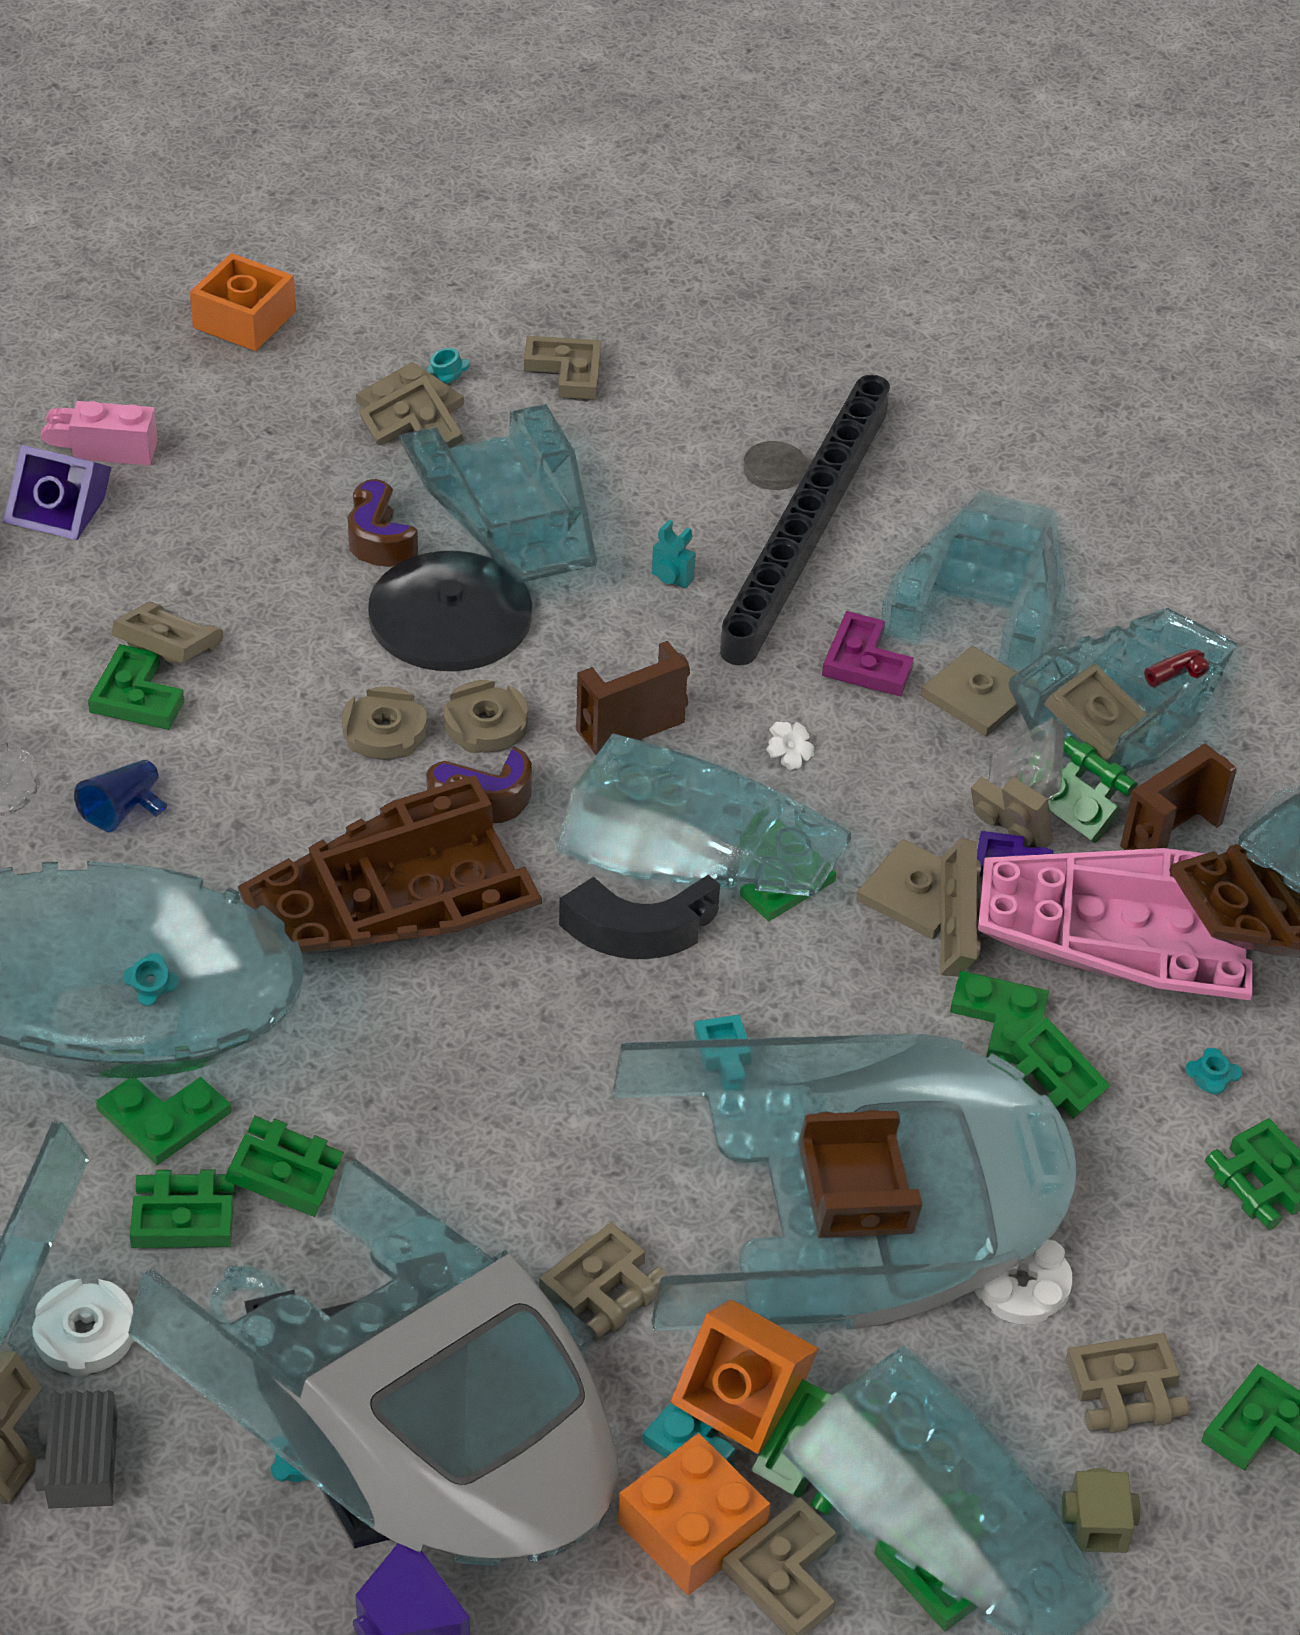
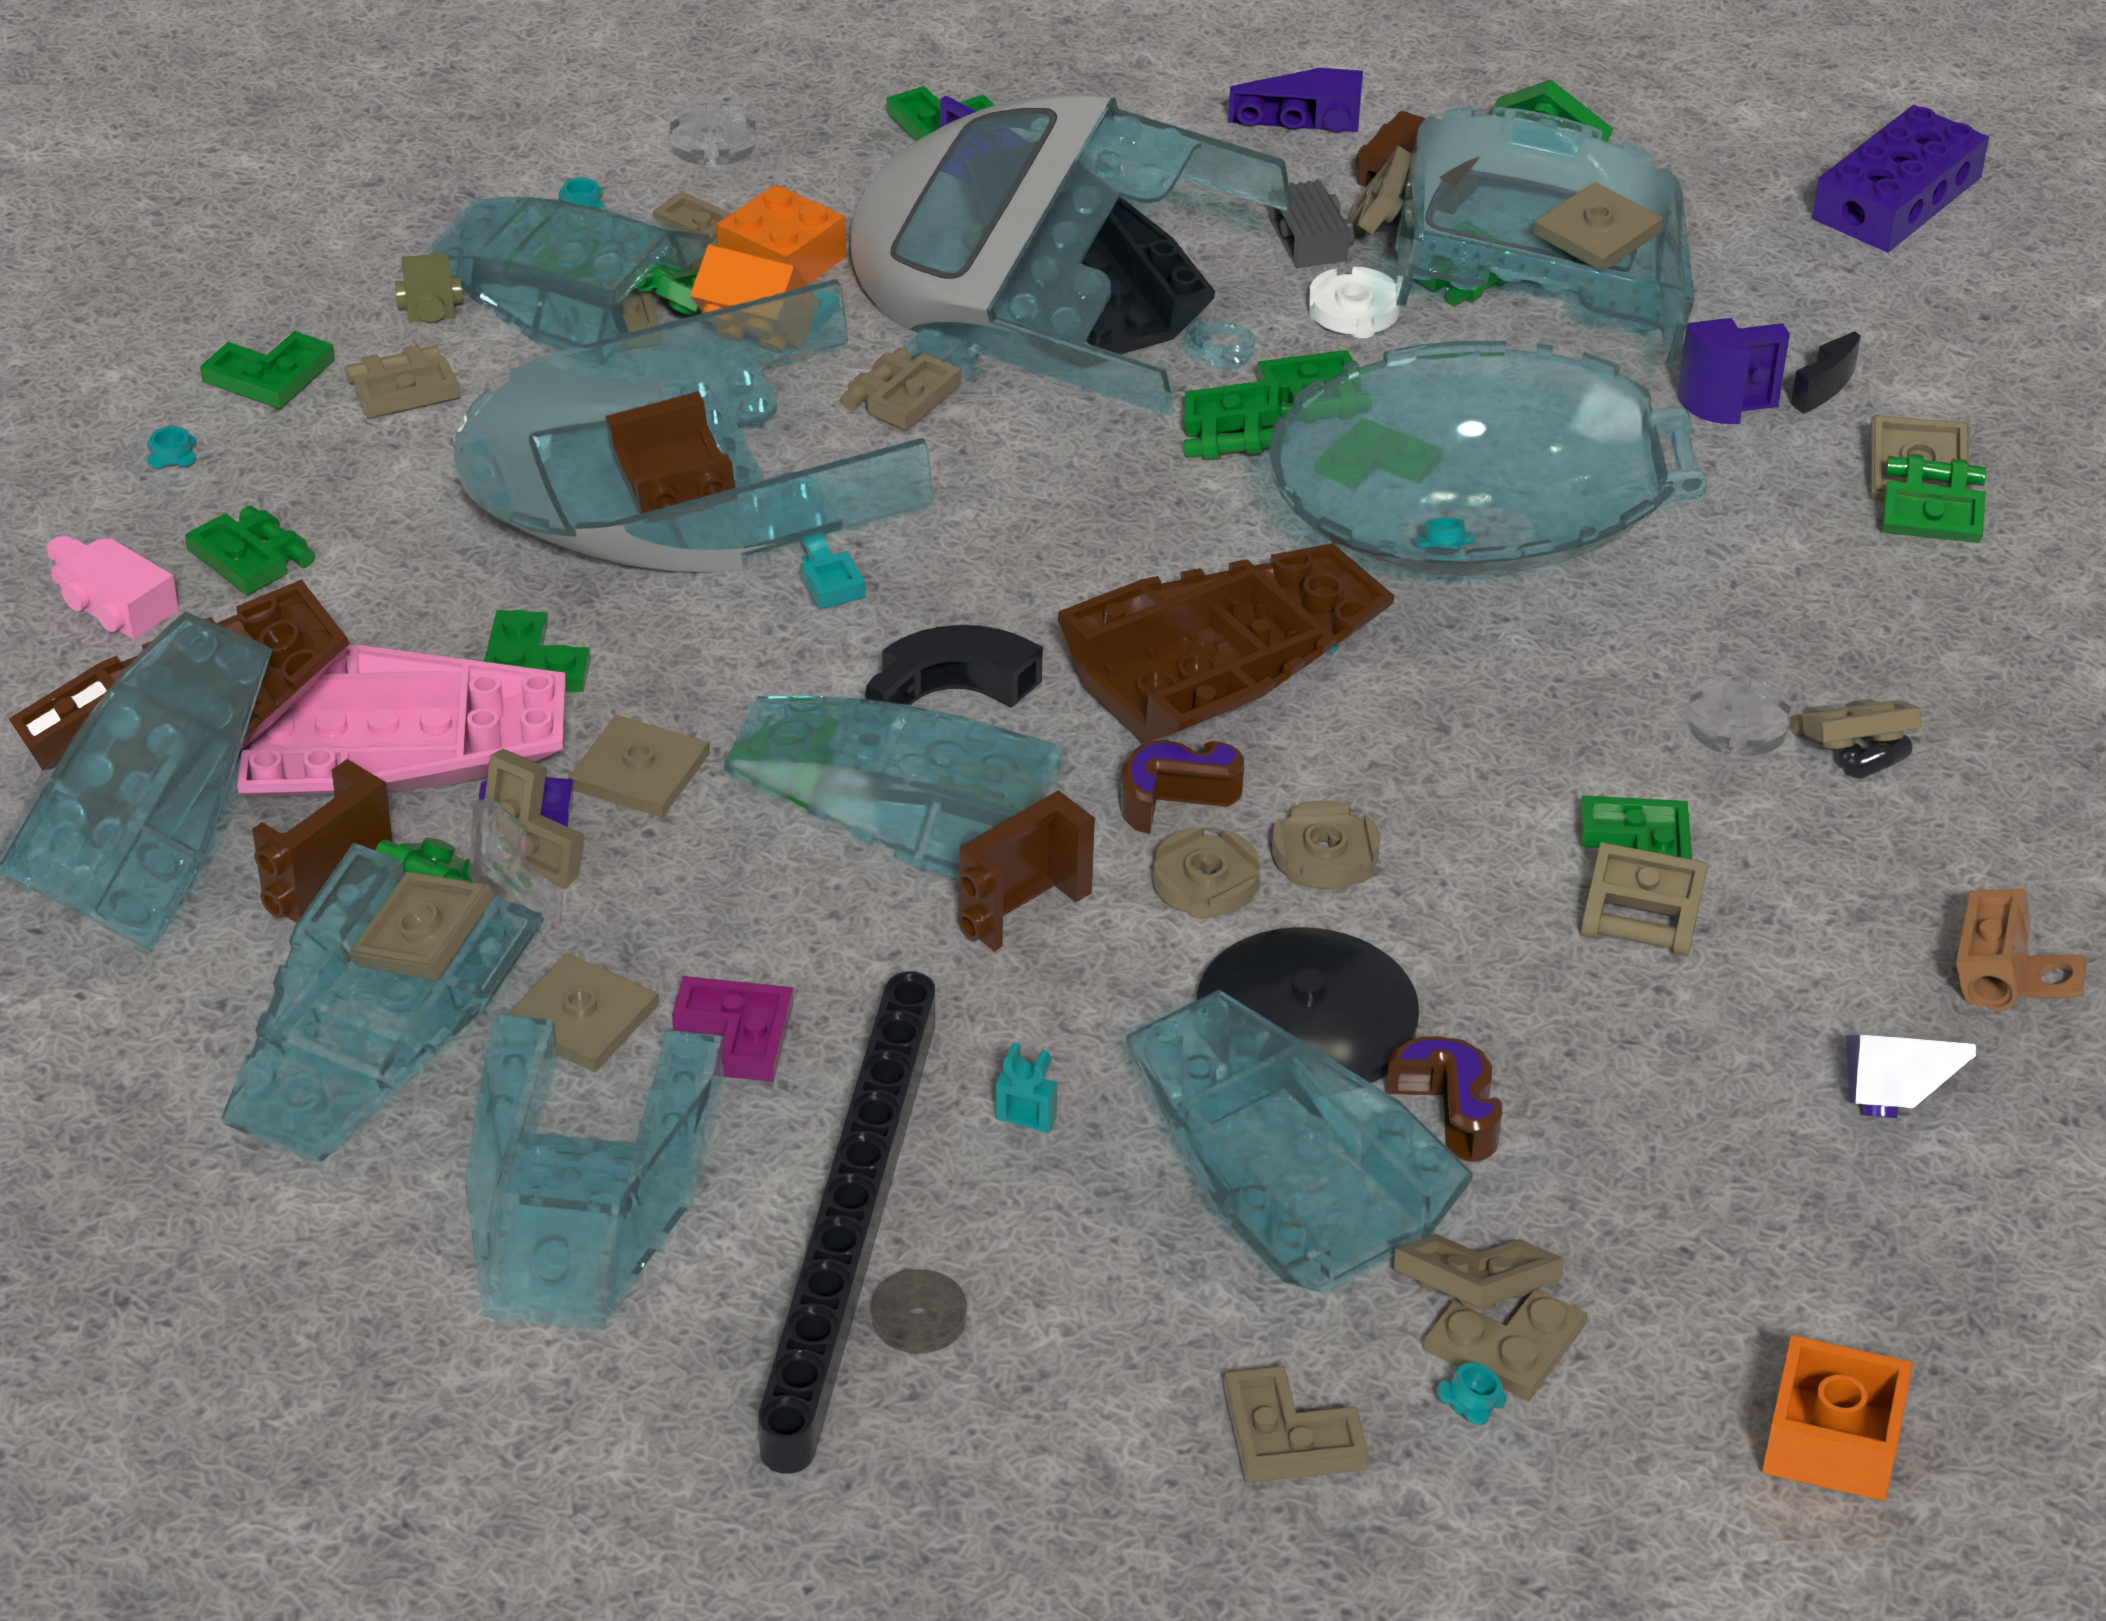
camera: 170 degrees right, 5 degrees down
(104, 432) = (1902, 1160): bright pink hinge -> none
(114, 794) = (1593, 708): clear blue piece -> none
(790, 743) = (818, 895): white plant -> none
(959, 908) = (587, 713): dark tan plate -> none
(1058, 1068) = (479, 586): green plate -> none
(1174, 666) = (310, 1020): dark red arm -> none

